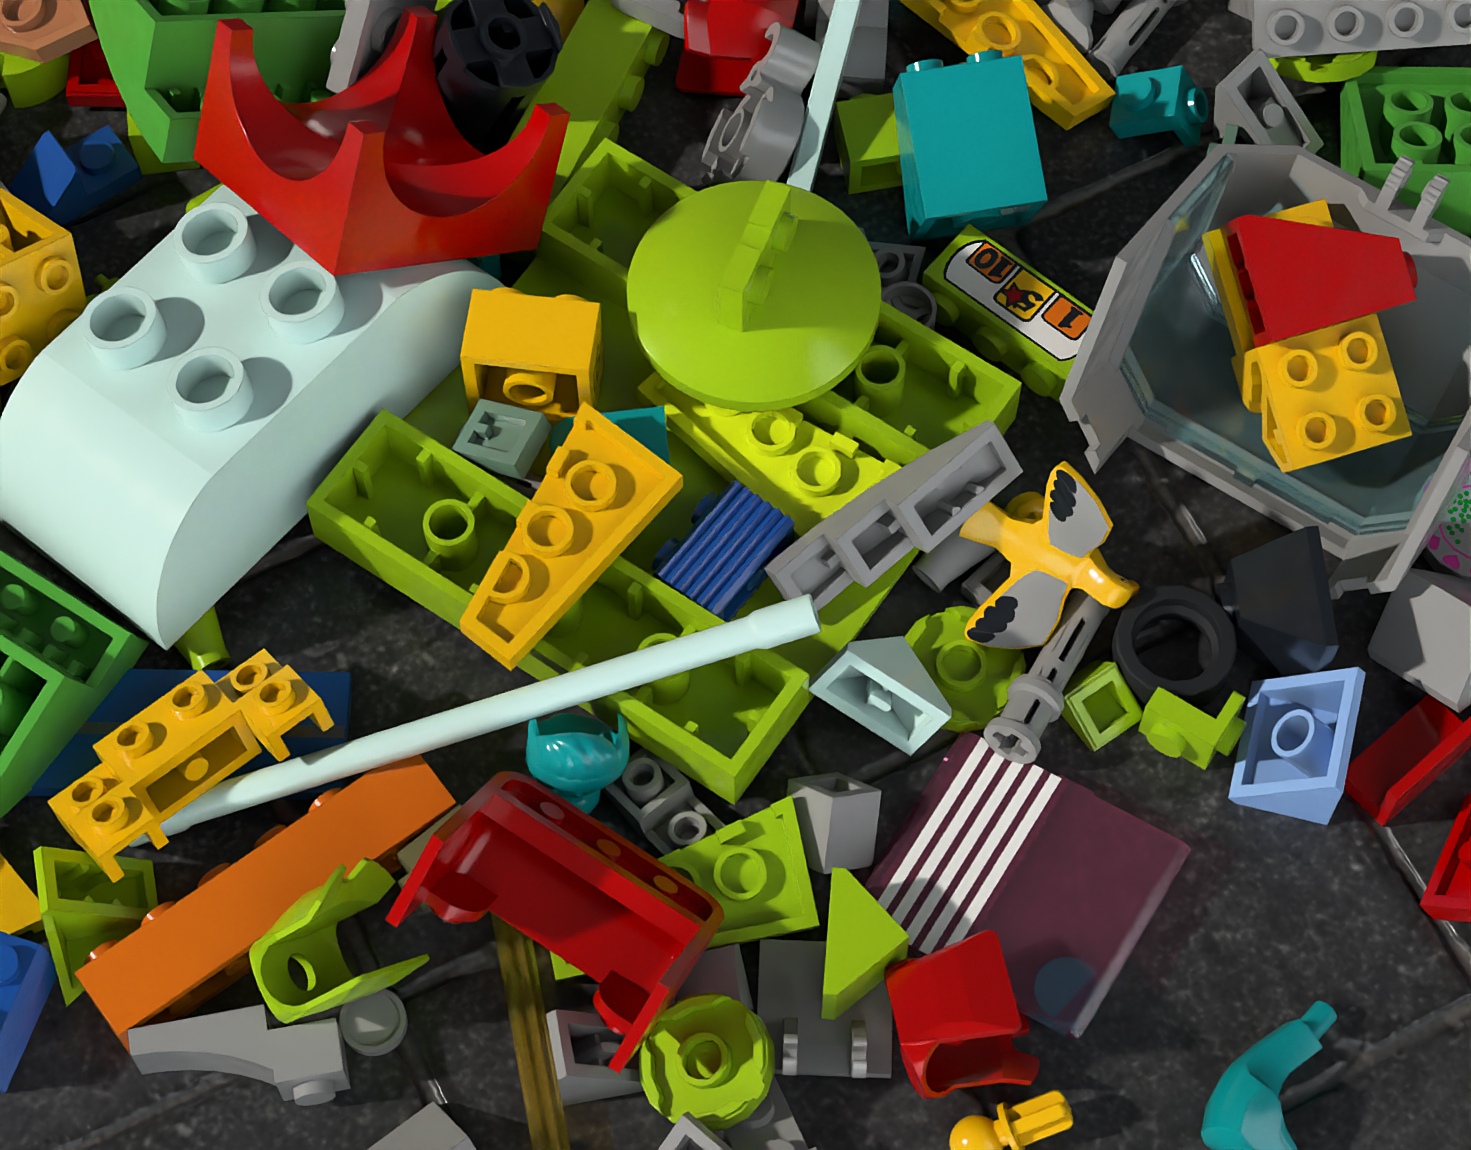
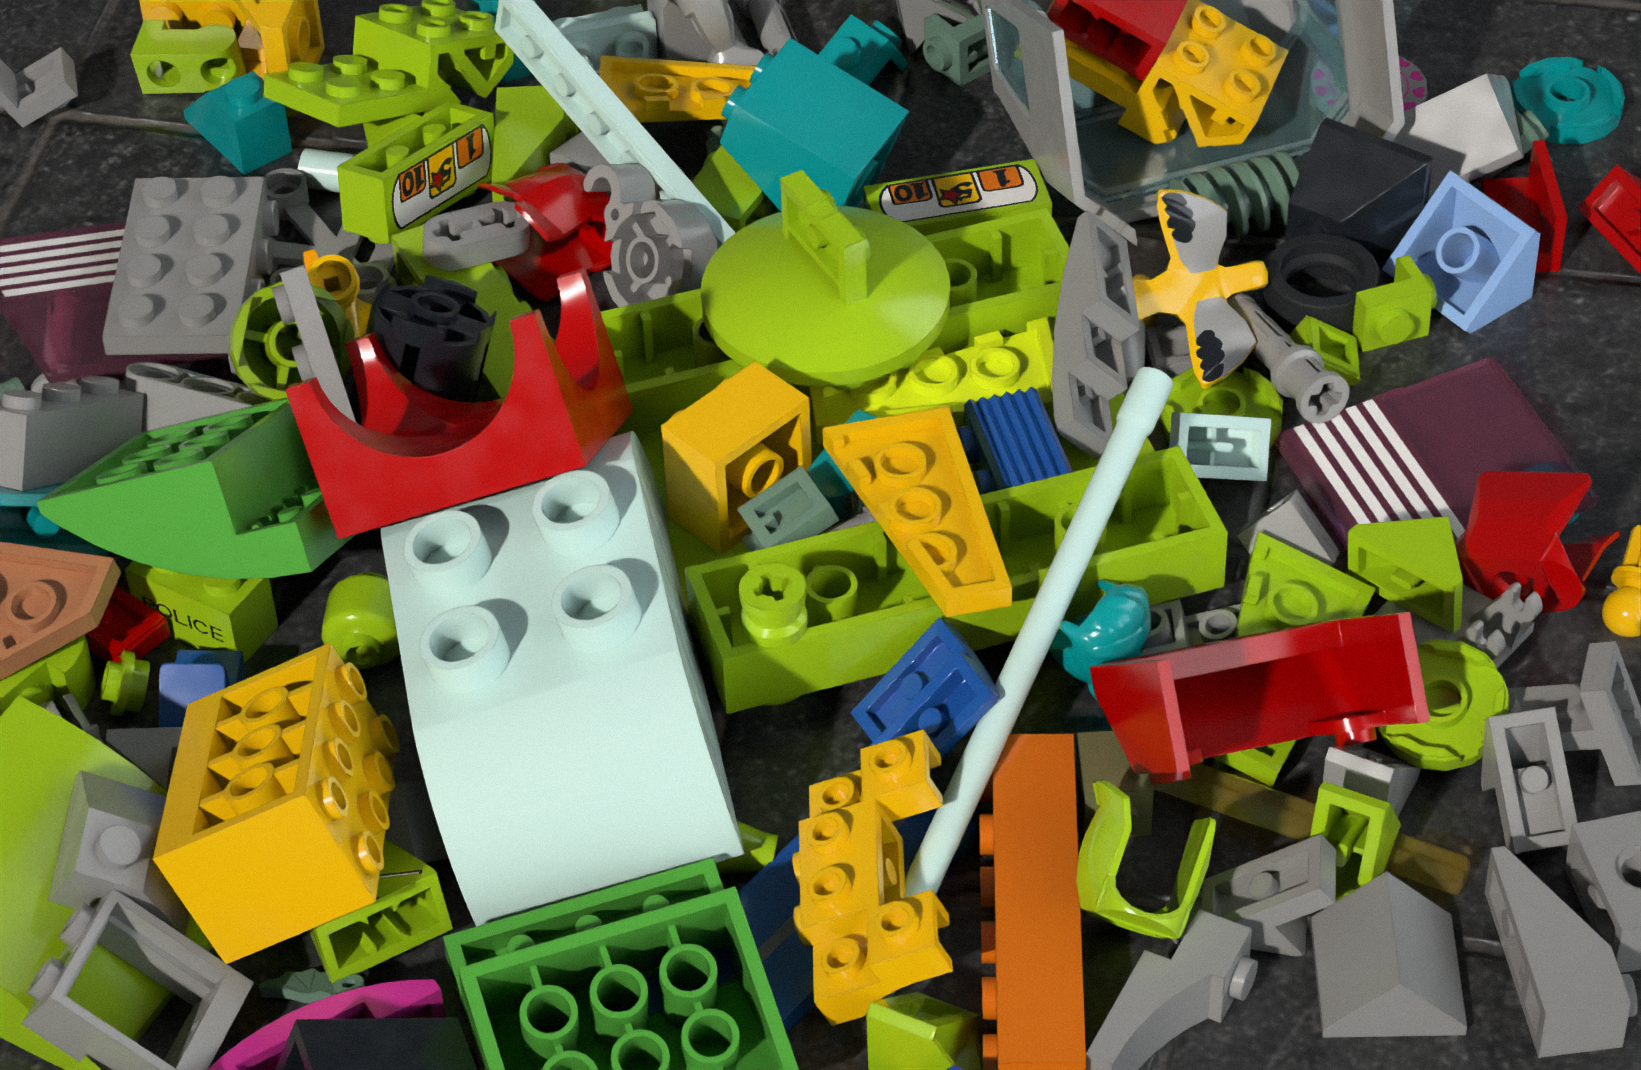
camera: 50 degrees left, 20 degrees down
(47, 114) = (125, 683): none -> lime plate
(375, 515) = (773, 605): none -> lime wheel
(402, 1058) = (1276, 894): none -> light grey slope
(408, 678) = (931, 688): none -> blue slope
(501, 1086) = (1359, 830): none -> lime slope
(1211, 510) = (1247, 190): none -> sand green piece

